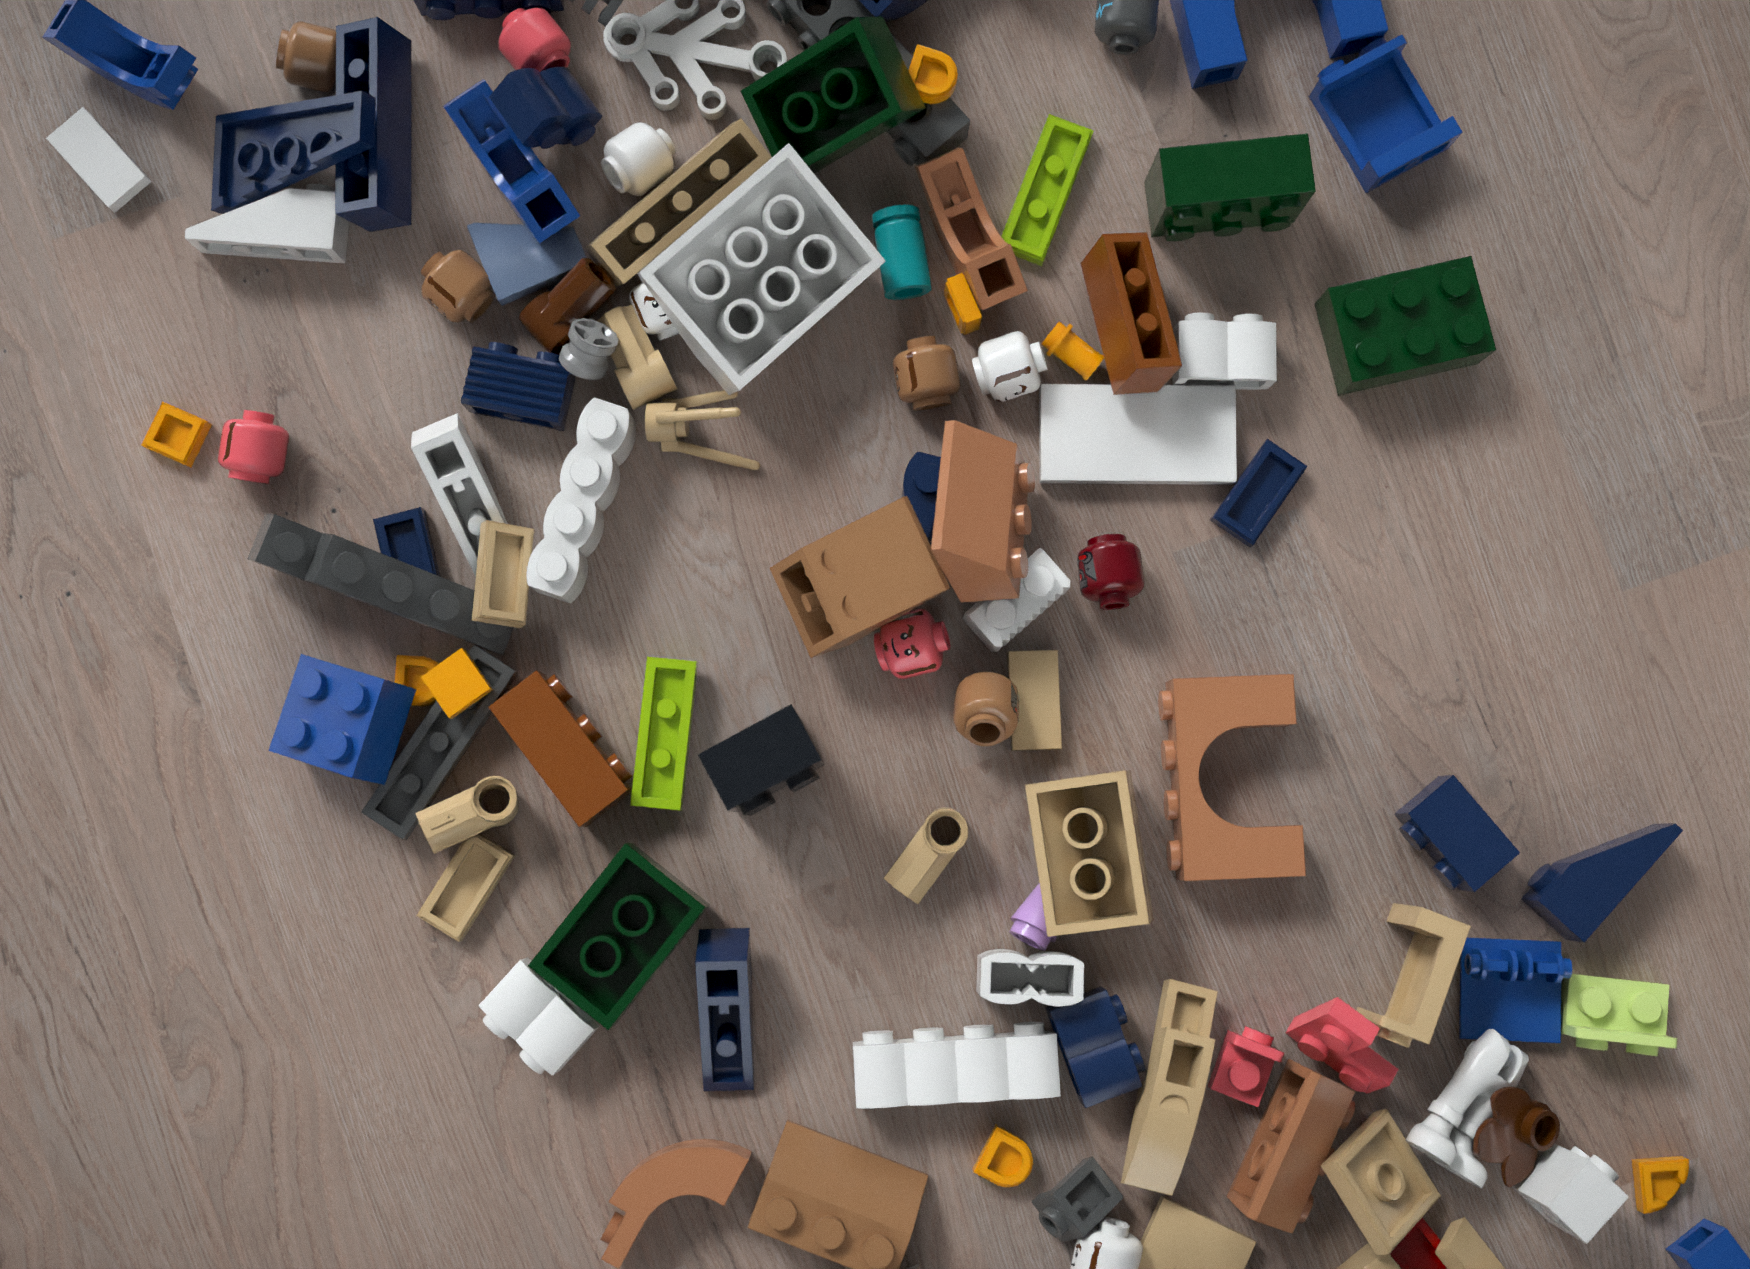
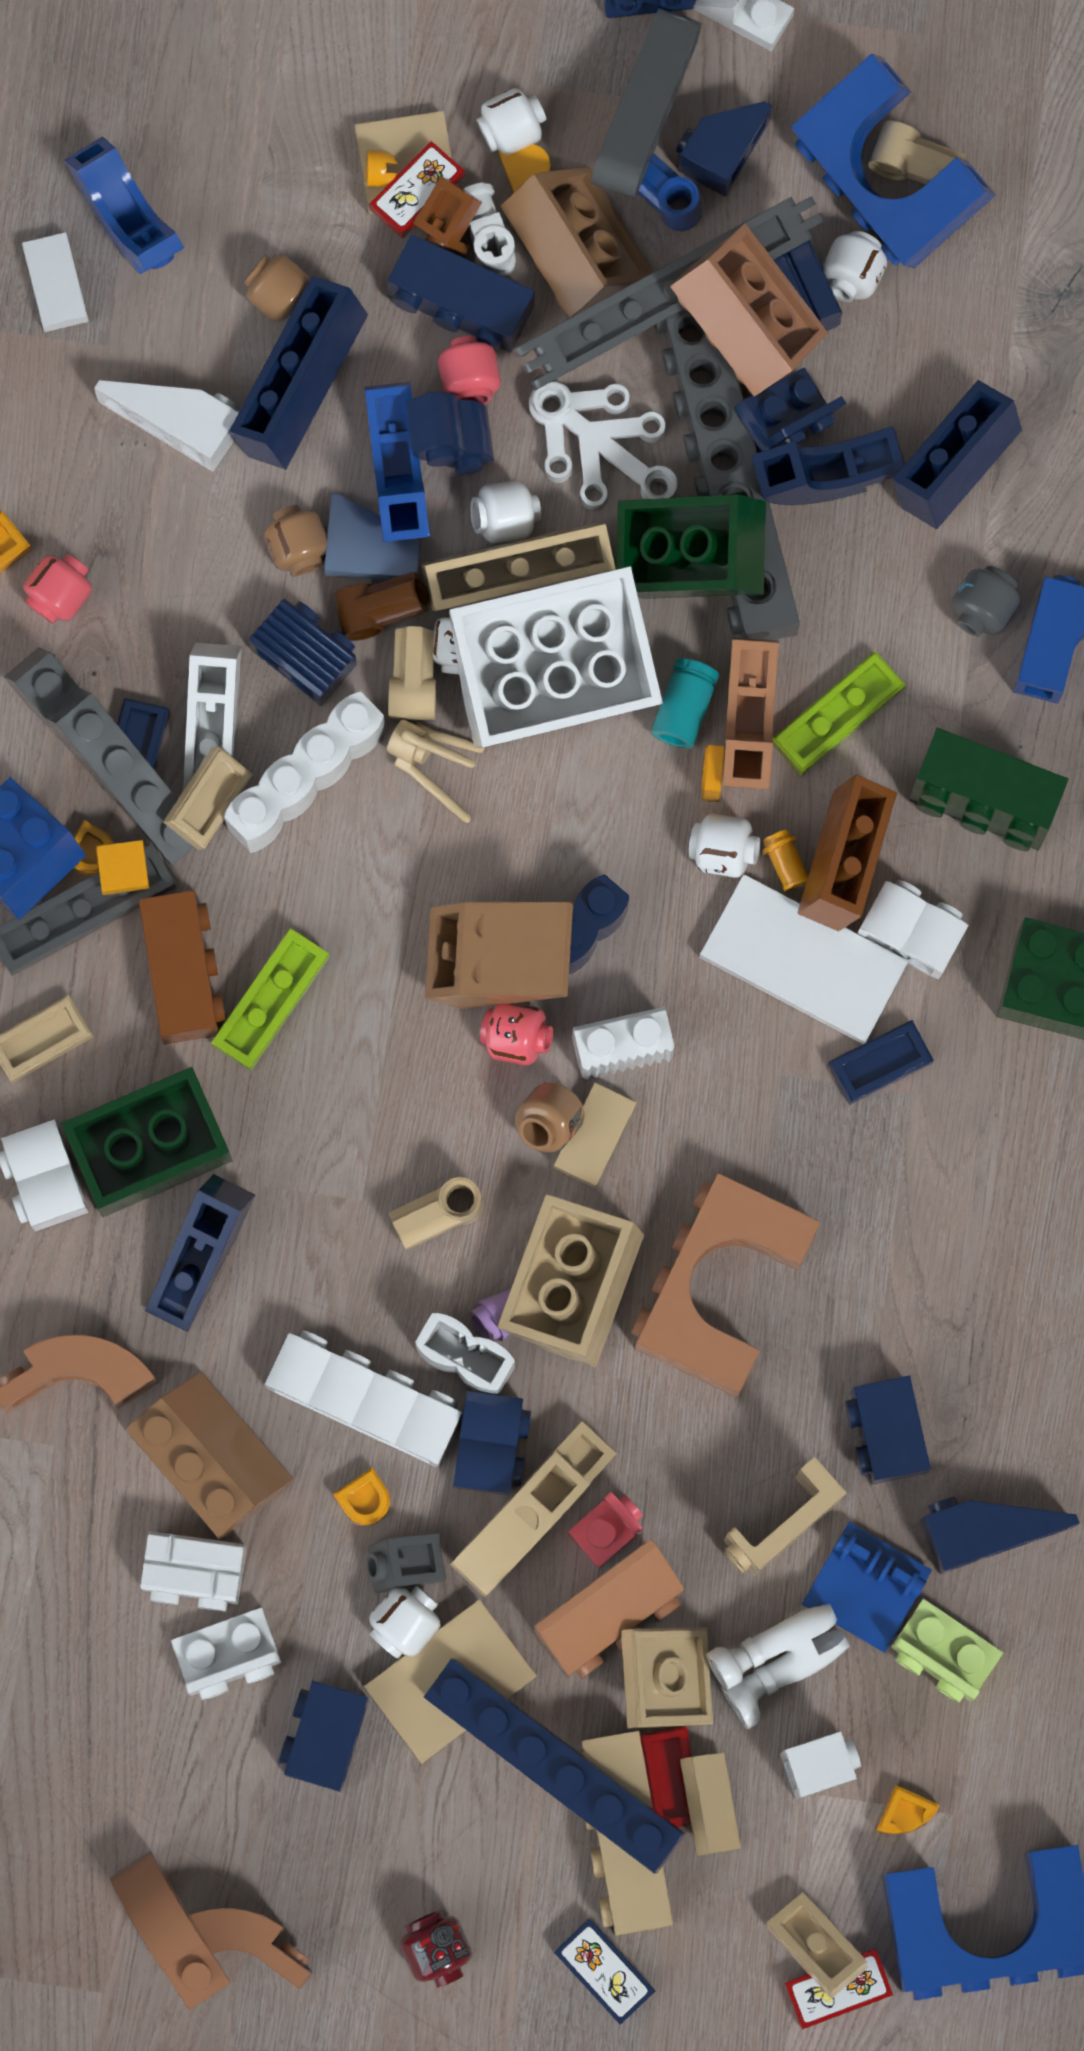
camera: 30 degrees right, 5 degrees down
(286, 143) = (216, 352): dark blue wing -> none
(463, 815) = (70, 979): tan piece -> none
(588, 349) = (377, 649): light grey wheel -> none
(762, 761) = (340, 1059): black brick -> none
(926, 374) = (650, 816): medium nougat head -> none
(933, 74) = (786, 569): light orange tile -> none
(982, 514) = (628, 951): nougat slope -> none
(1110, 571) = (716, 1059): dark red head -> none
(1341, 1040) = (688, 1538): coral plate -> none
(1515, 1133) = (795, 1699): reddish brown plate -> none

